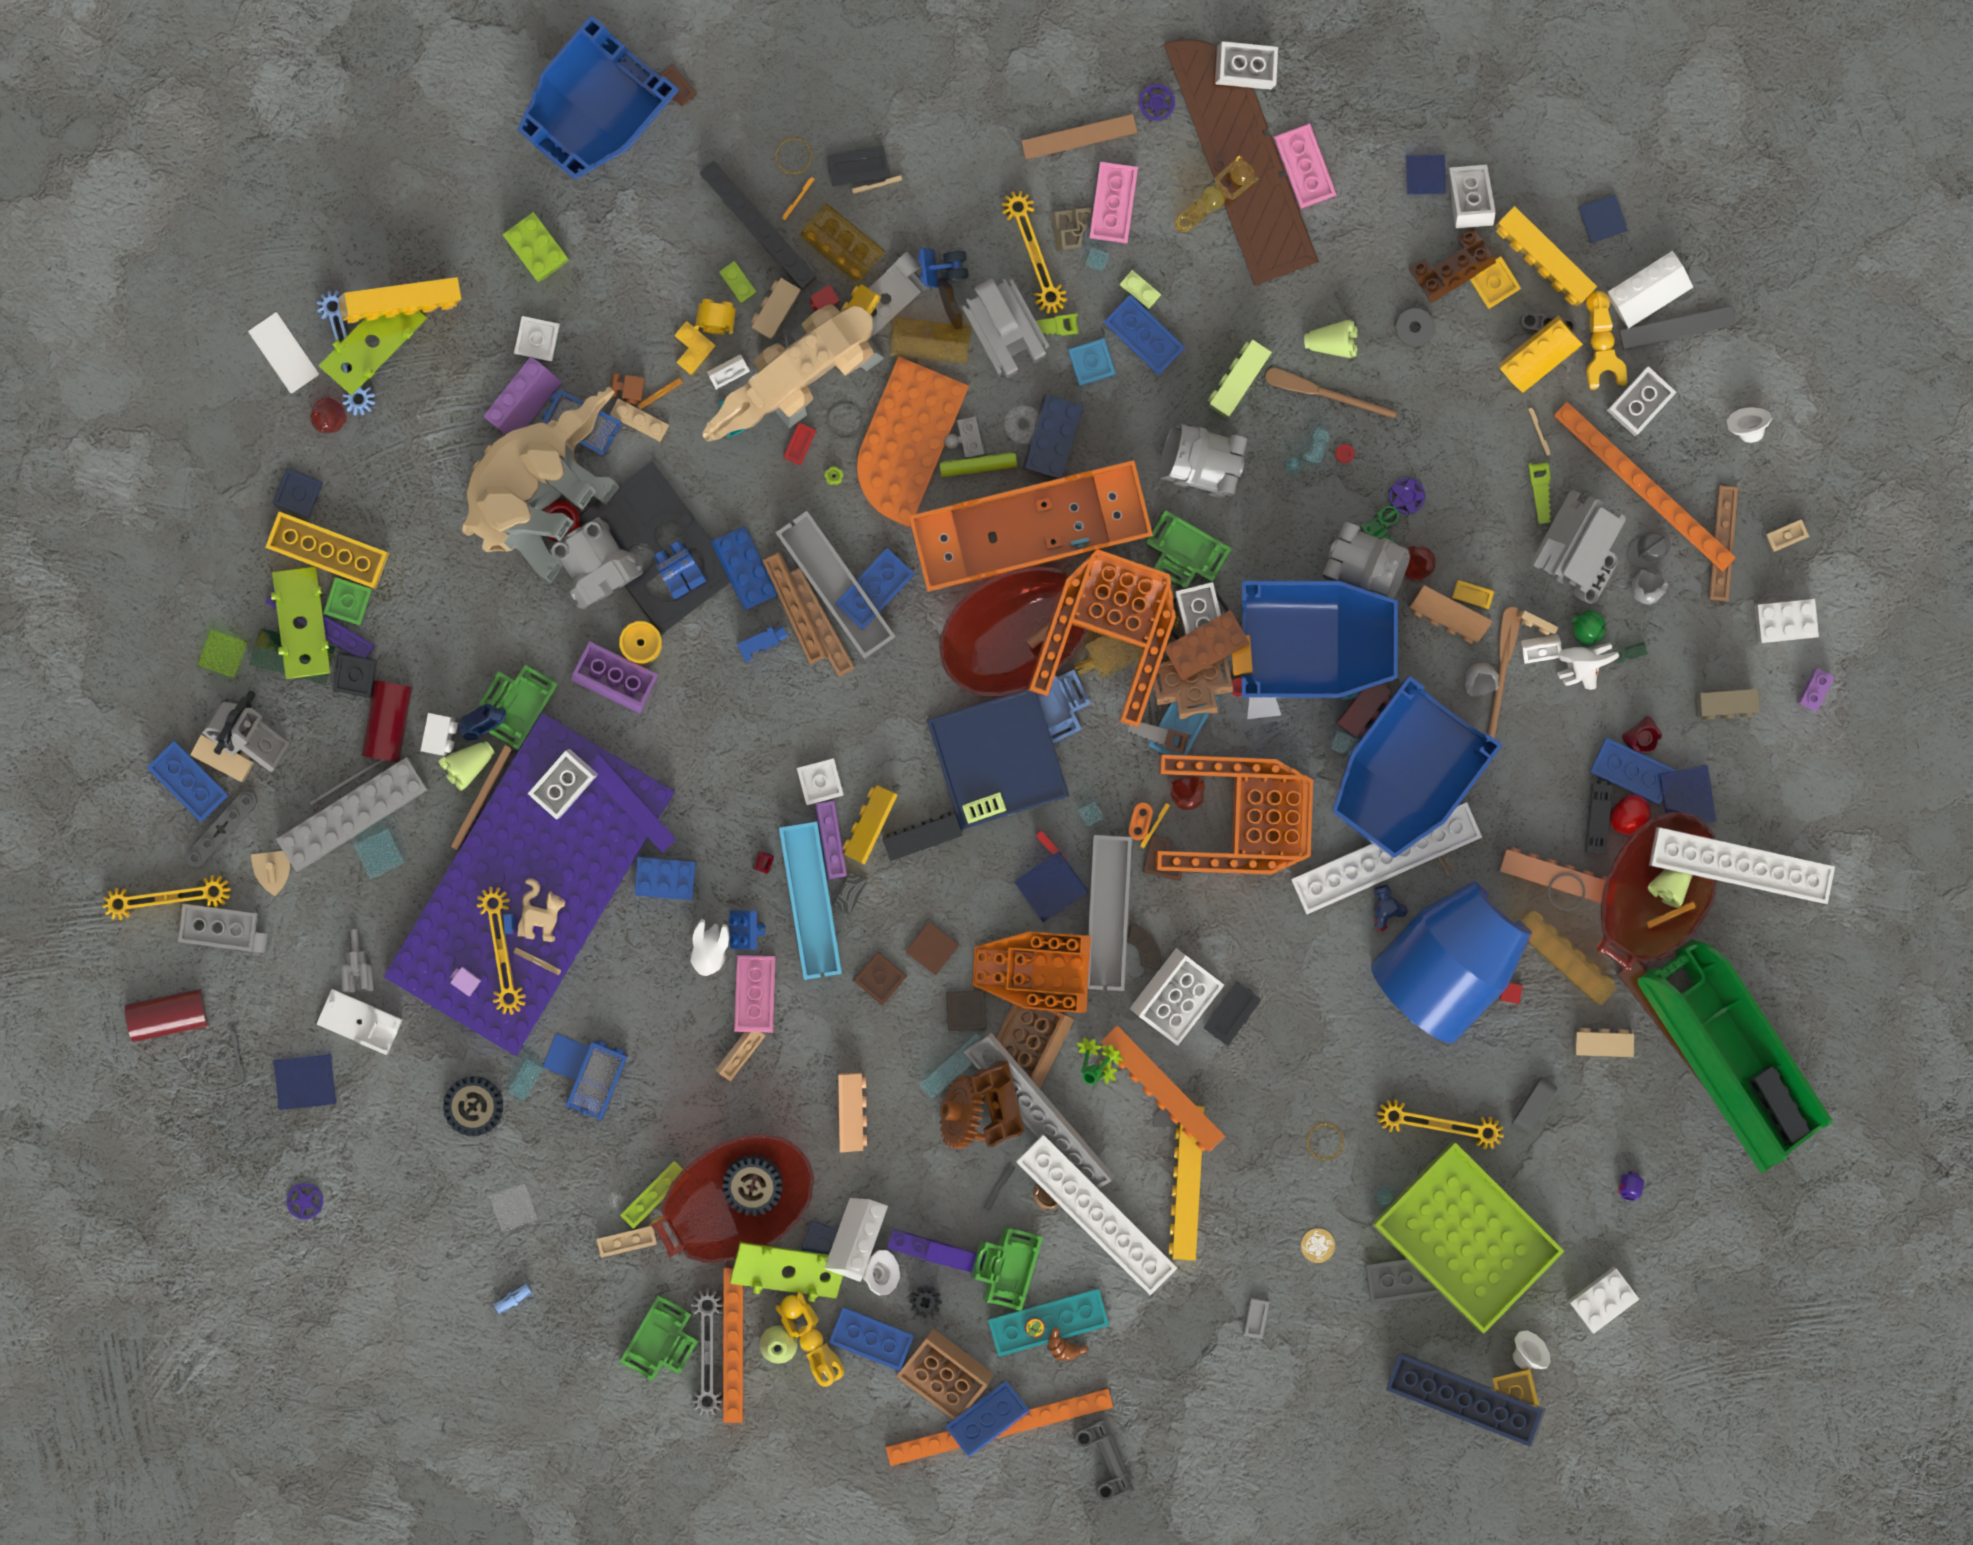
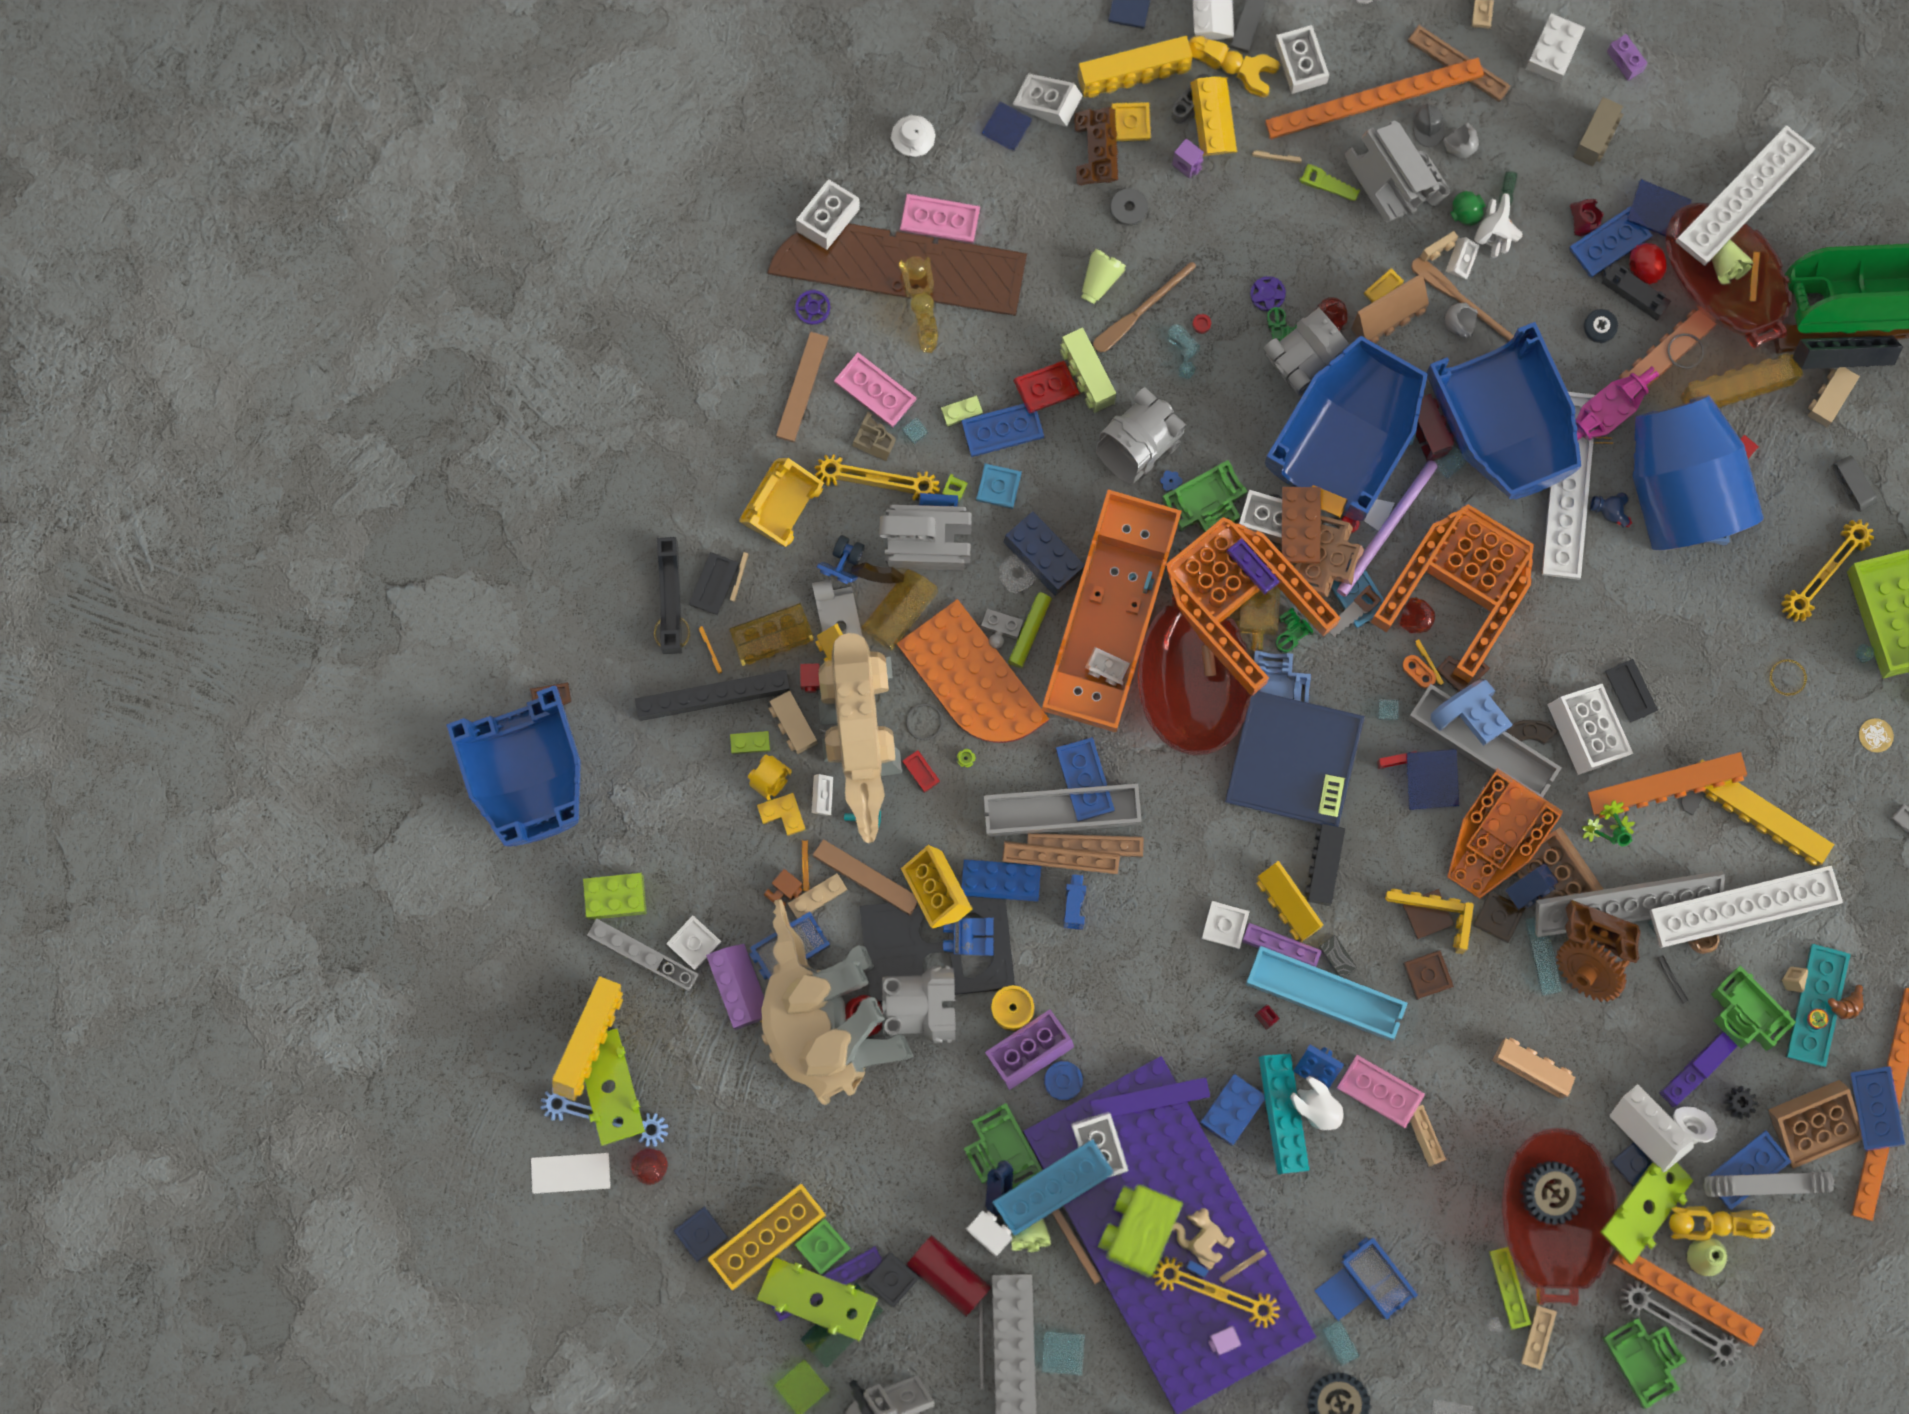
camera: 60 degrees left, 10 degrees down
(500, 301) = (642, 955): none -> light grey slope
(505, 765) = (1053, 1187): none -> dark azure plate
(512, 859) = (1142, 1229): none -> lime brick
(606, 721) = (1063, 1080): none -> blue tile
(678, 928) = (1283, 1117): none -> teal plate
(679, 452) = (866, 877): none -> medium nougat tile
(703, 517) = (936, 887): none -> yellow slope
(823, 135) = (670, 595): none -> black arch
(867, 1361) = (1769, 1184): none -> light grey arm
(944, 948) = (1463, 922): none -> yellow bracket
(963, 180) = (780, 500): none -> yellow windscreen
(982, 550) = (1107, 665): none -> white bracket
(1004, 1023) = (1536, 883): none -> dark blue piece
(1043, 318) = (938, 500): none -> blue tile
(1059, 1290) = (1795, 979): none -> tan slope
(1116, 695) = (1297, 630): none -> green piece
(1129, 889) = (1476, 710): none -> medium blue piece
(1139, 625) = (1253, 566): none -> dark purple tile
(1188, 504) = (1167, 476): none -> blue plant
(1204, 351) = (1046, 387): none -> red tile
(1257, 722) = (1389, 525): none -> lavender piece
(1359, 91) = (908, 141): none -> white hat
(1475, 854) = (1613, 405): none -> dark pink plate
(1486, 354) = (1188, 158): none -> medium lavender brick
(1552, 814) = (1603, 316): none -> black bush
(1645, 1033) = (1847, 352): none -> black brick

